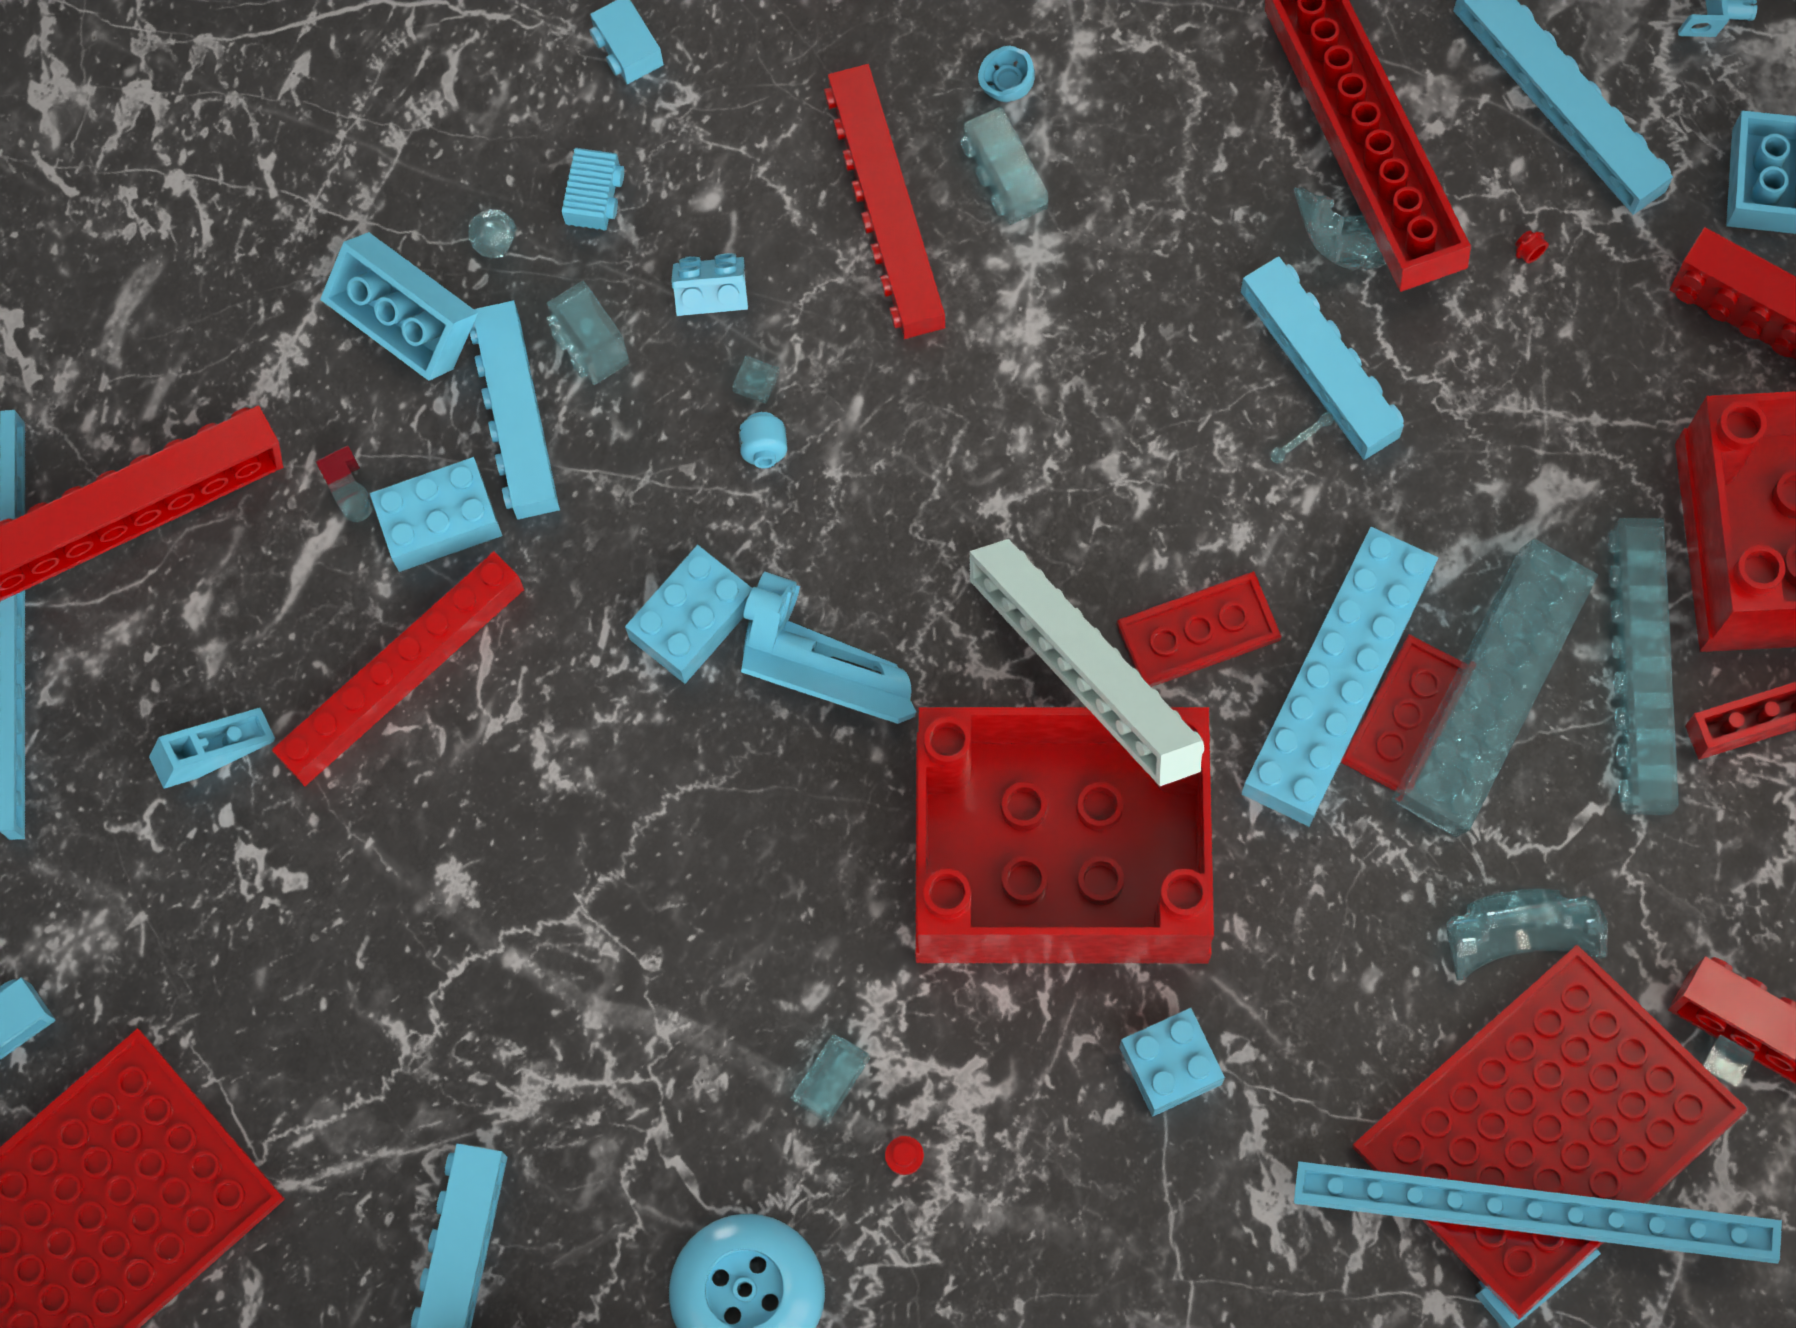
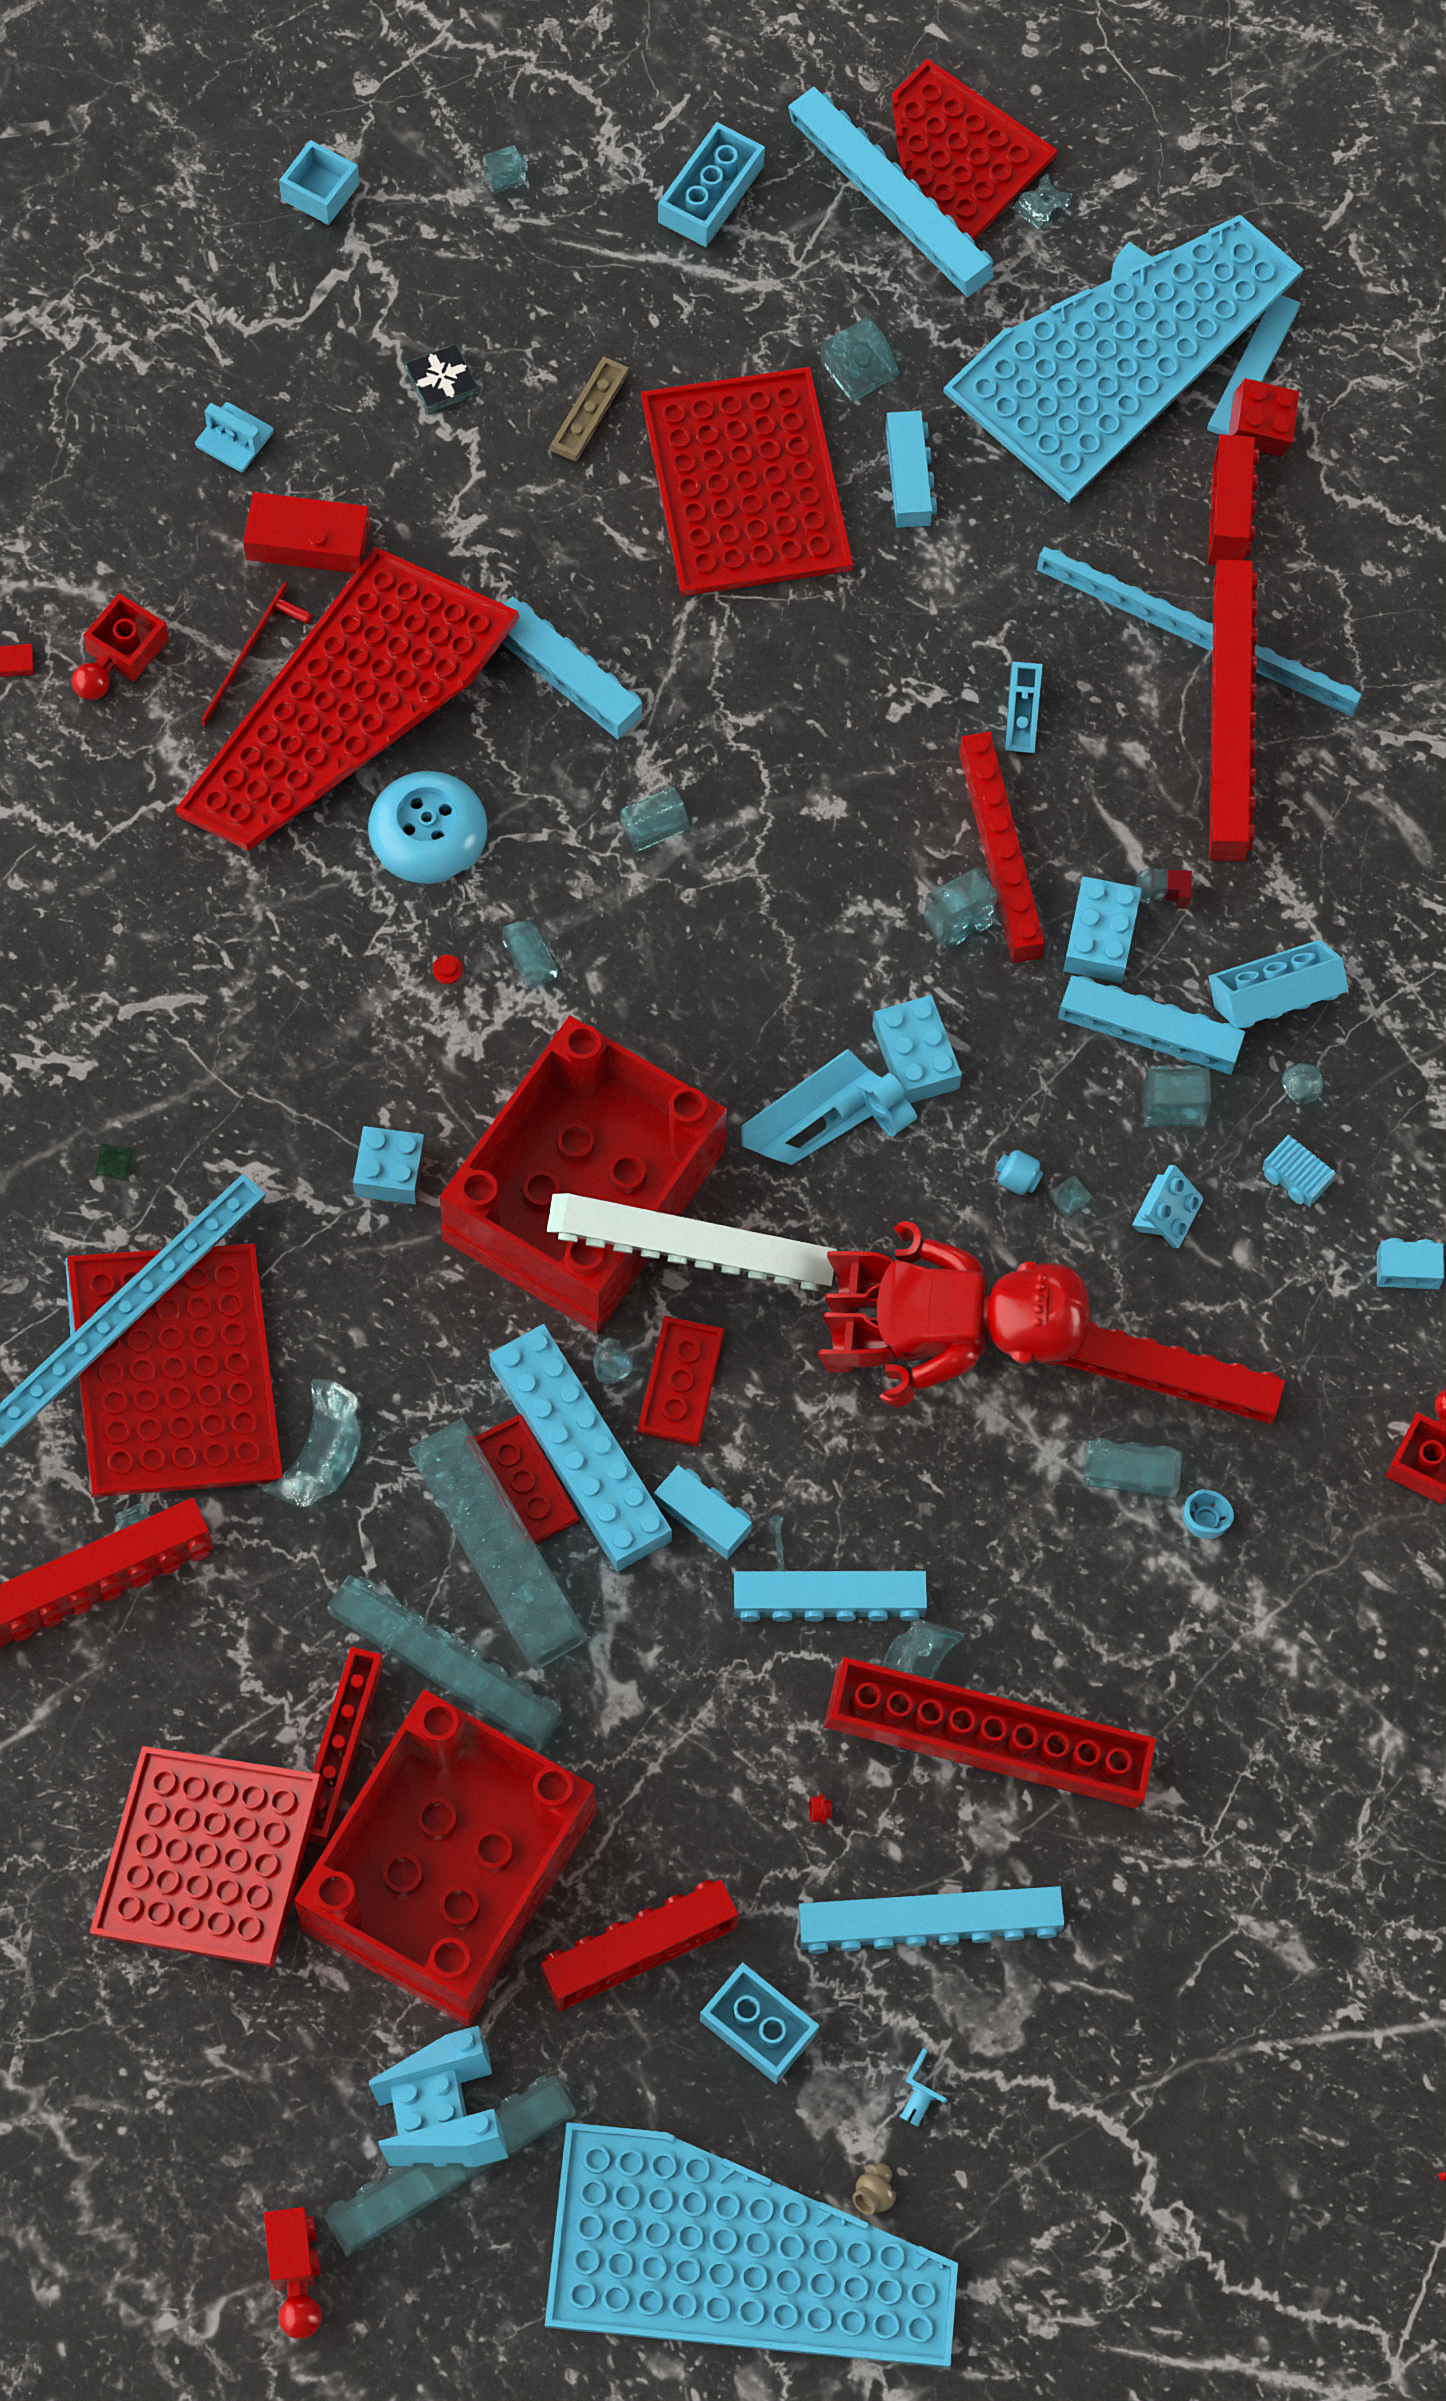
camera: 115 degrees right, 5 degrees down
(502, 658) = (960, 908): none -> clear light blue brick
(586, 1048) = (654, 819): none -> clear light blue brick
(983, 385) = (947, 1313): none -> red piece
(1232, 703) = (611, 1361): none -> clear light blue animal
(1321, 521) = (703, 1511): none -> medium azure brick

